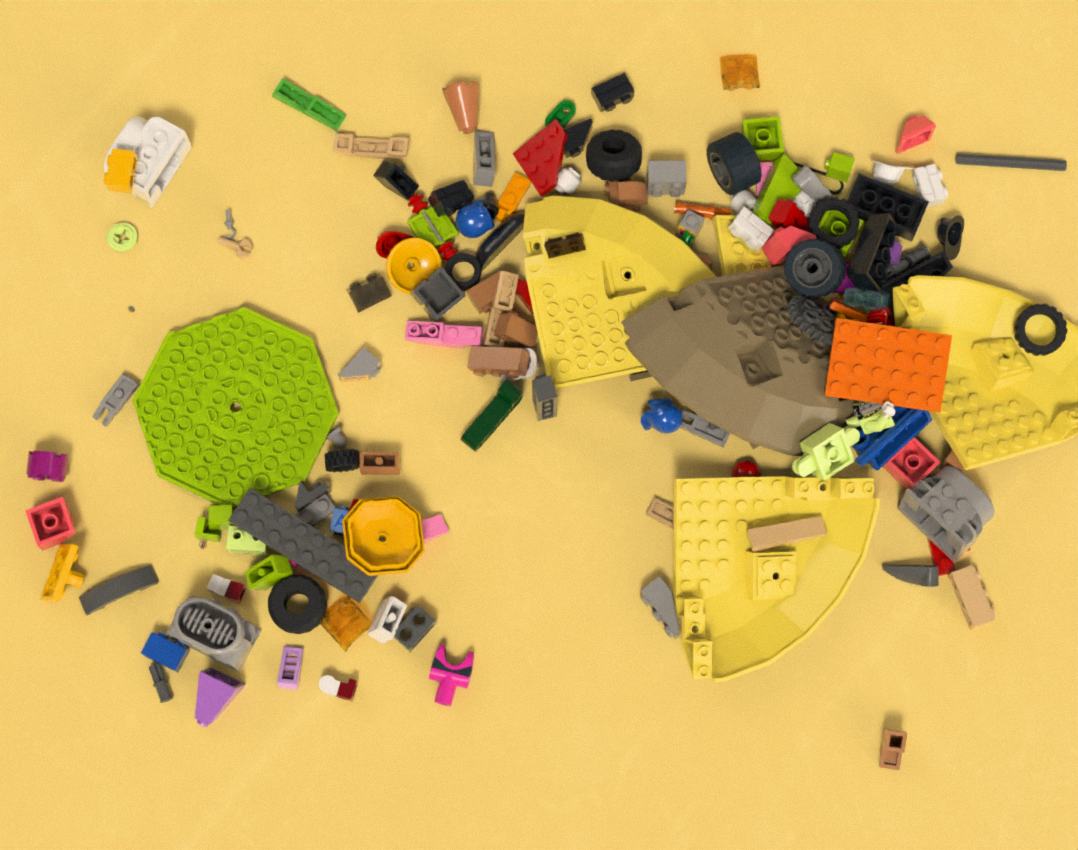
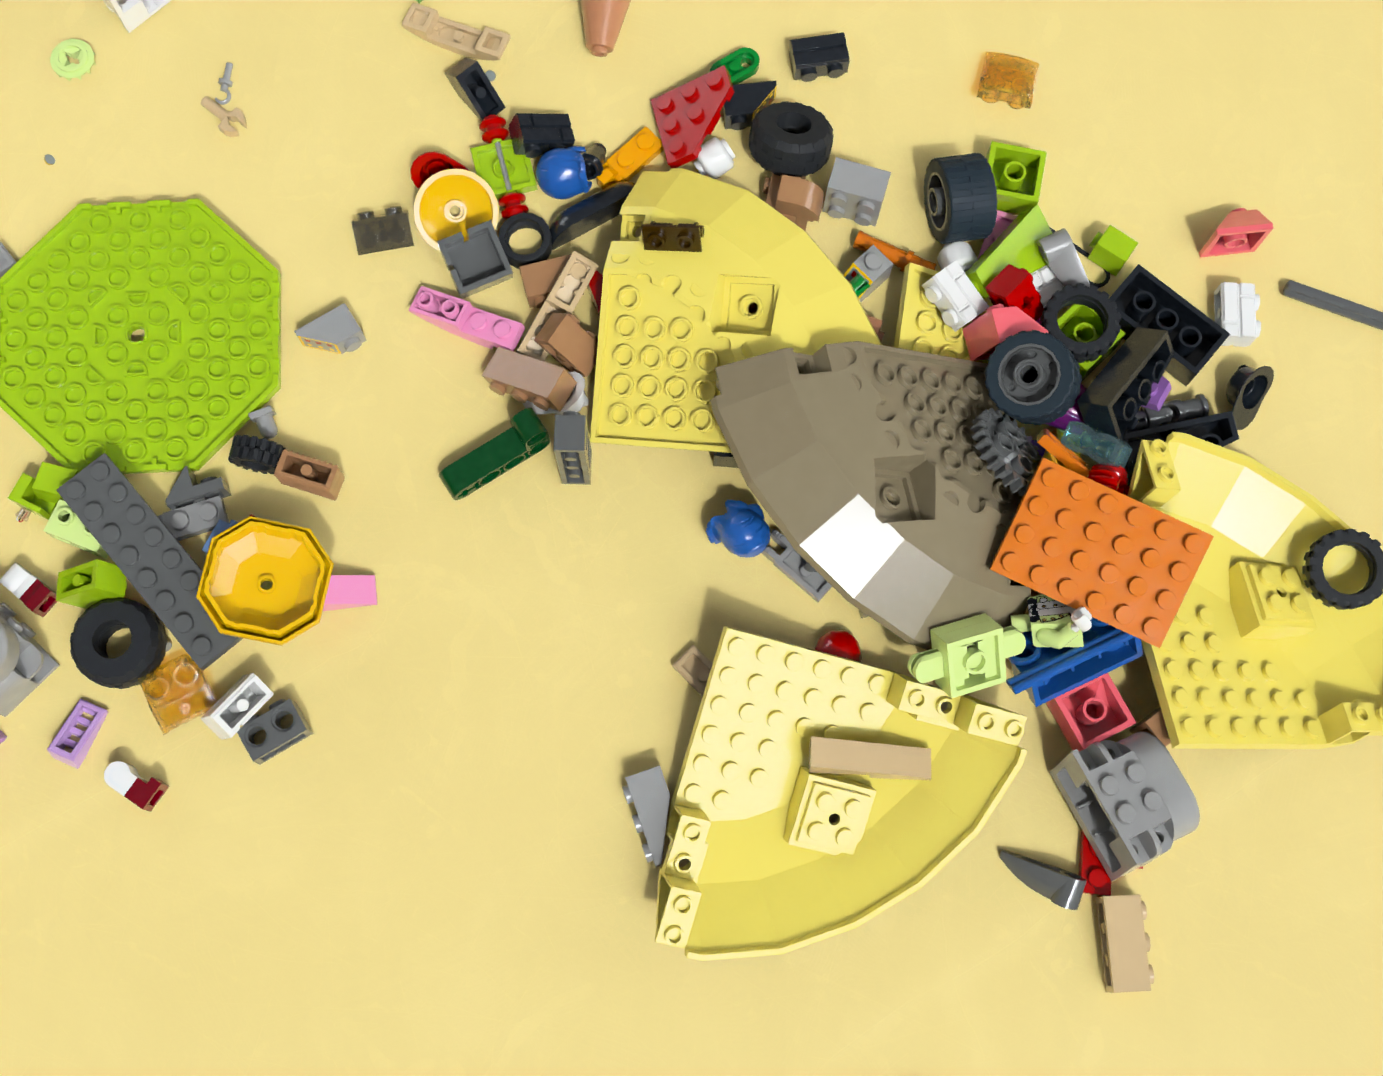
camera: 15 degrees right, 0 degrees up
(450, 675) = (302, 818): dark pink connector -> none
(483, 159) = (606, 95): light grey slope -> none
(888, 173) = (1180, 276): white piece -> none

